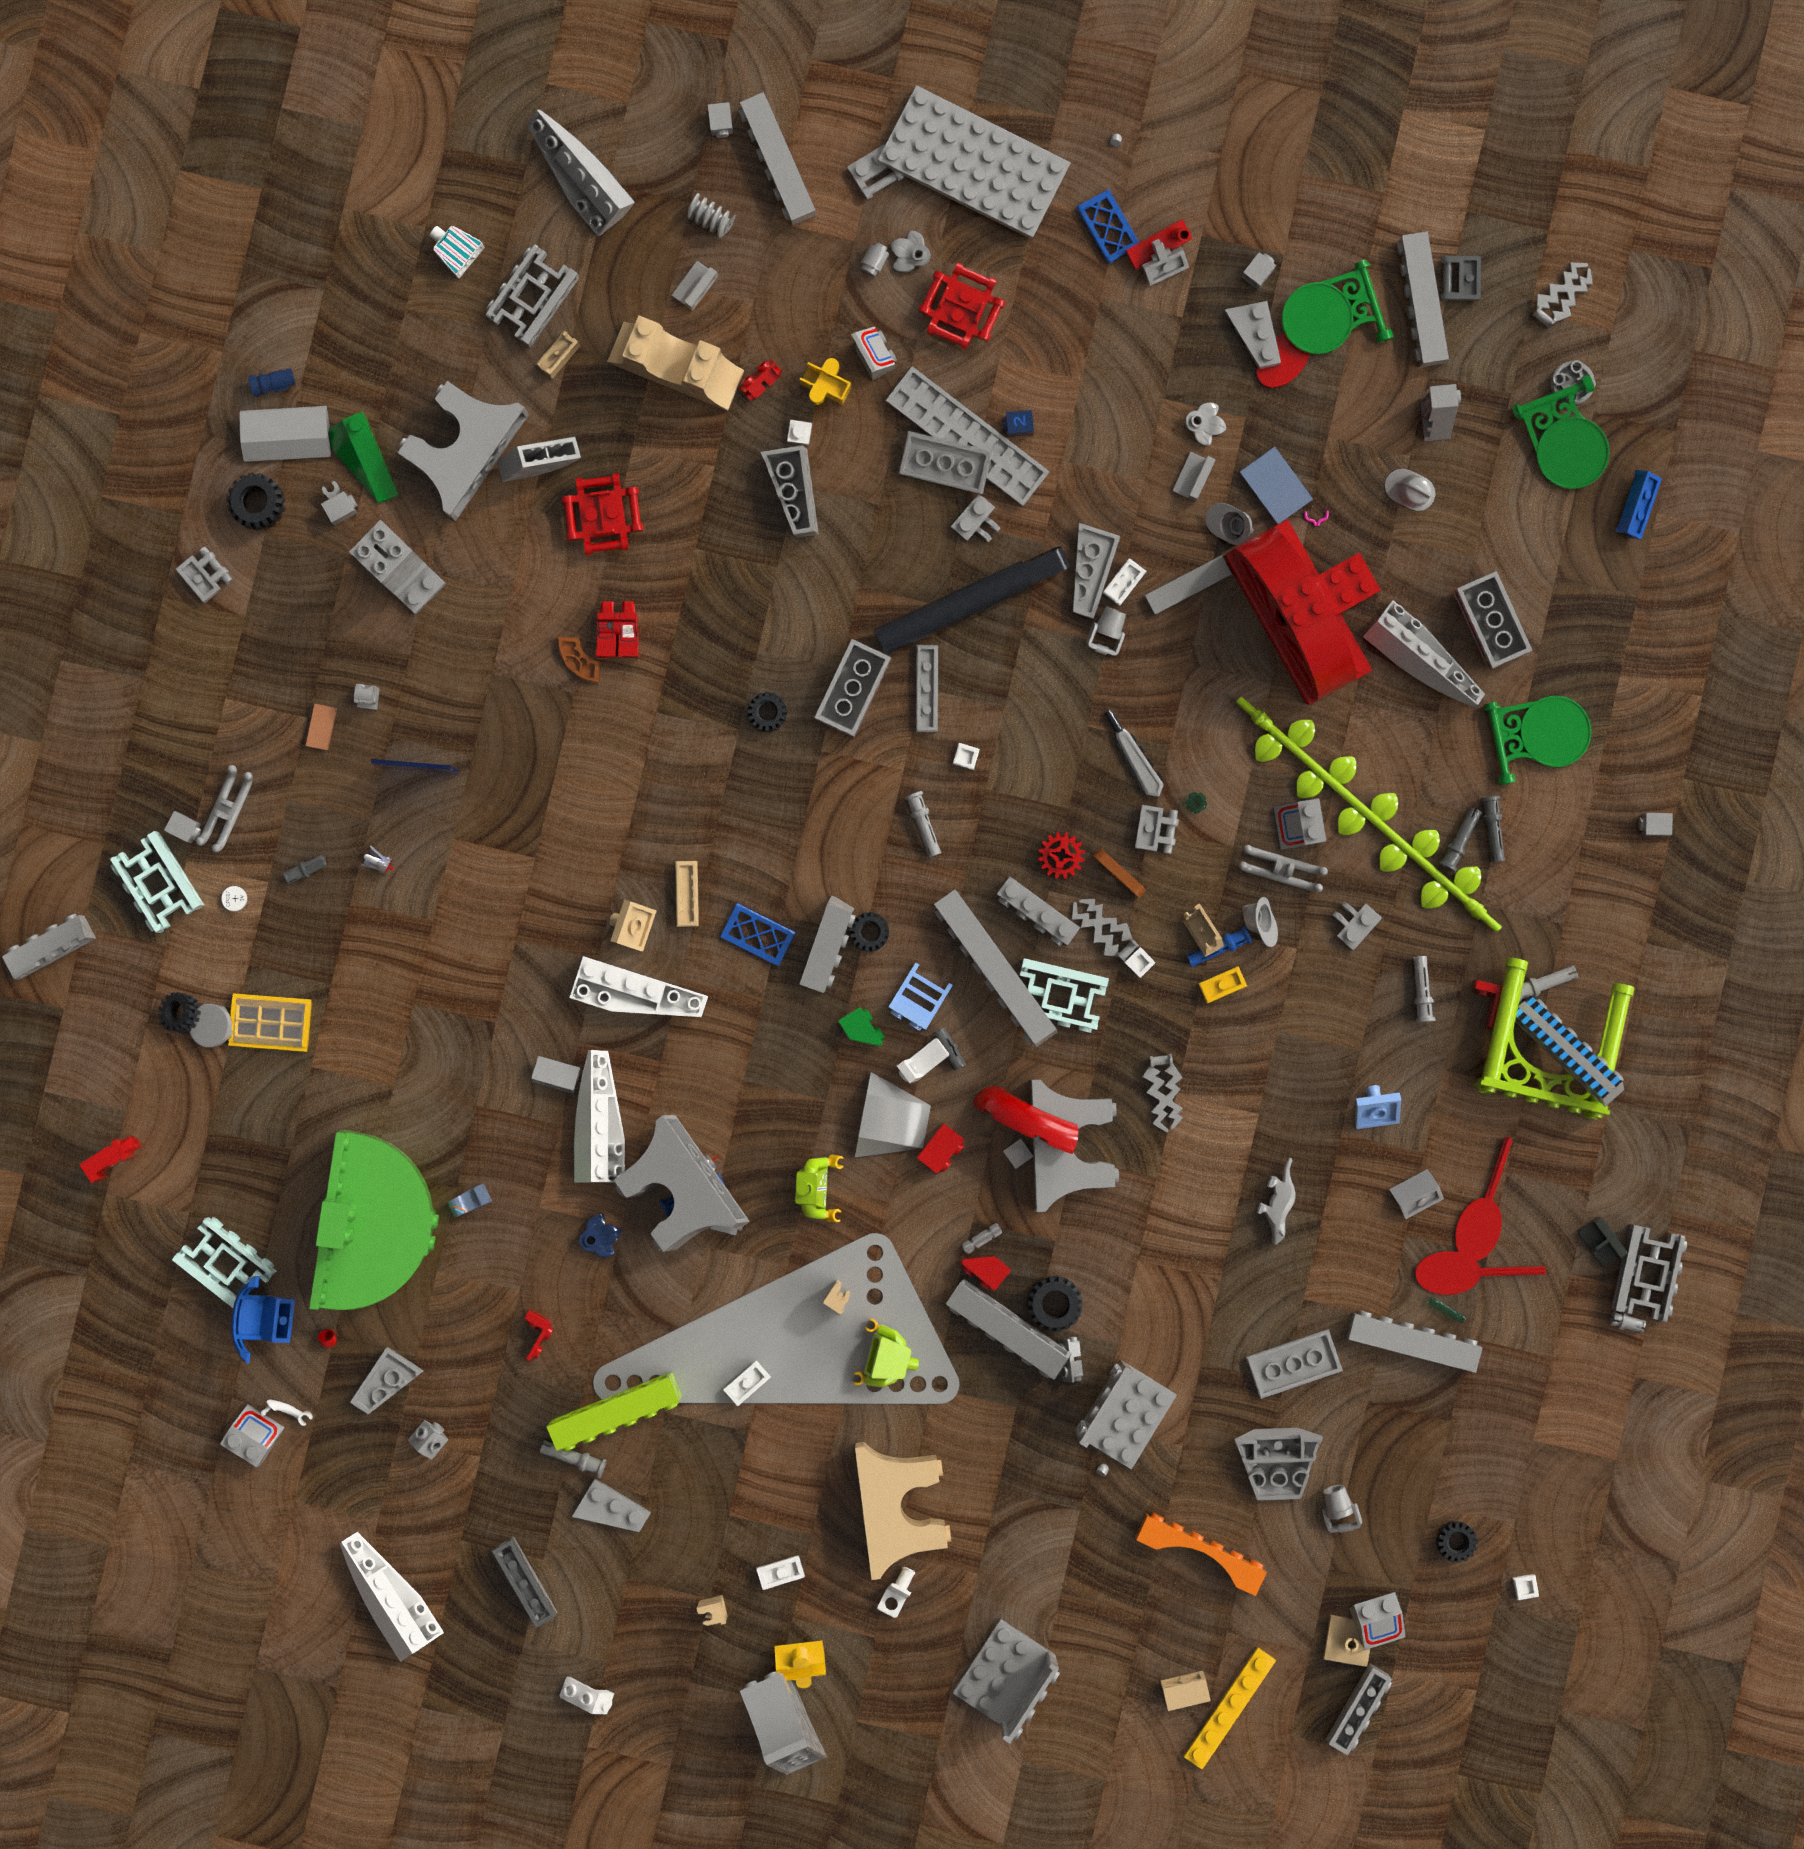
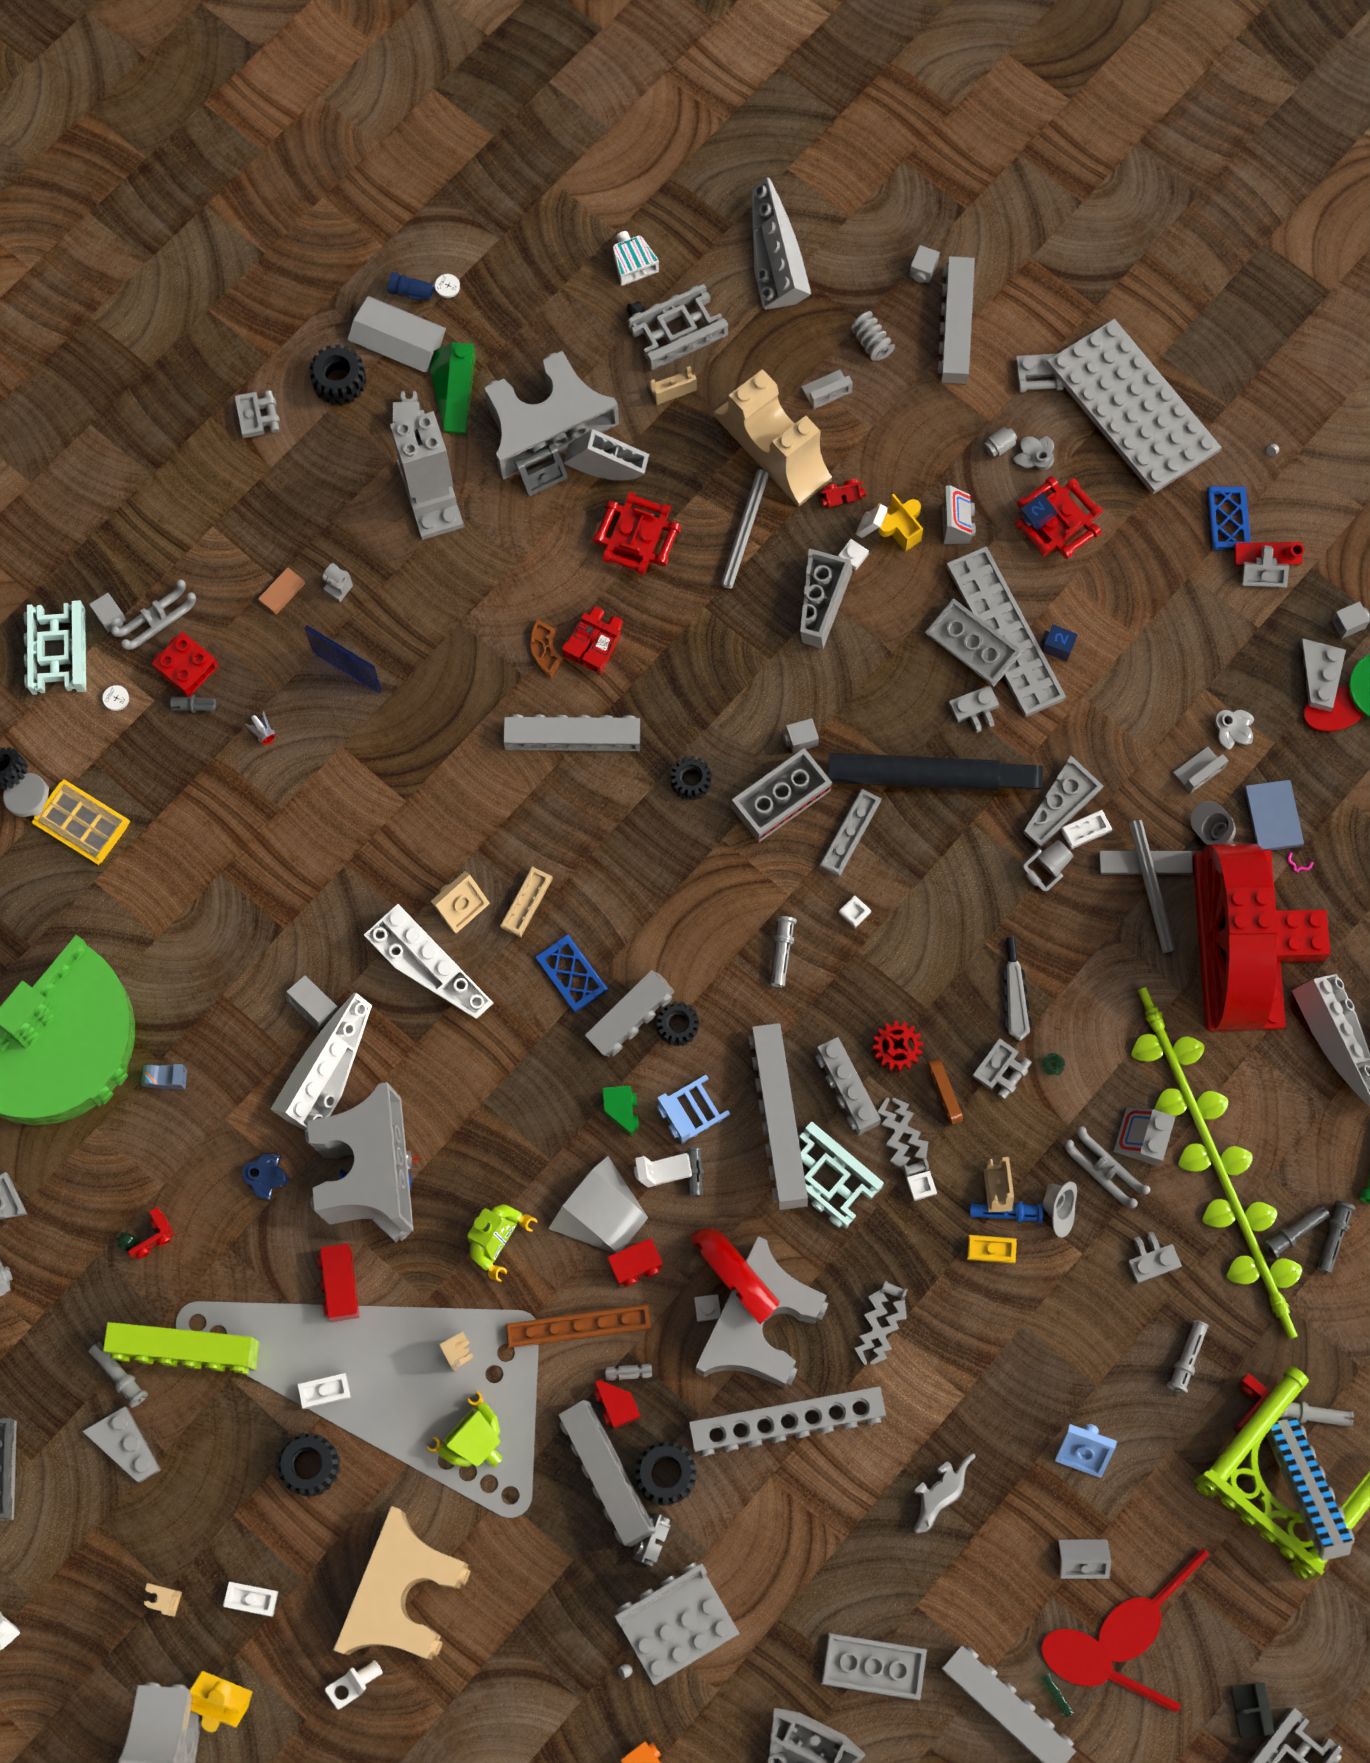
camera: 30 degrees right, 15 degrees down
(277, 839) = (184, 664): none -> red brick
(303, 361) = (447, 285): none -> white piece
(484, 297) = (635, 308): none -> black piece
(490, 501) = (543, 475): none -> dark grey plate
(518, 1349) = (126, 1241): none -> clear green plate
(645, 725) = (572, 734): none -> light grey brick
(692, 457) = (744, 529): none -> light grey axle
(710, 1292) = (338, 1282): none -> red brick
(761, 1465) = (288, 1458): none -> black tyre
(801, 396) = (871, 520): none -> white plate
(841, 625) = (801, 735): none -> light grey brick
(921, 1223) = (578, 1326): none -> dark orange tile
(943, 315) = (1038, 512): none -> dark blue brick
(1151, 1184) = (870, 1398): none -> light grey brick
(1204, 604) = (1152, 886): none -> light grey axle

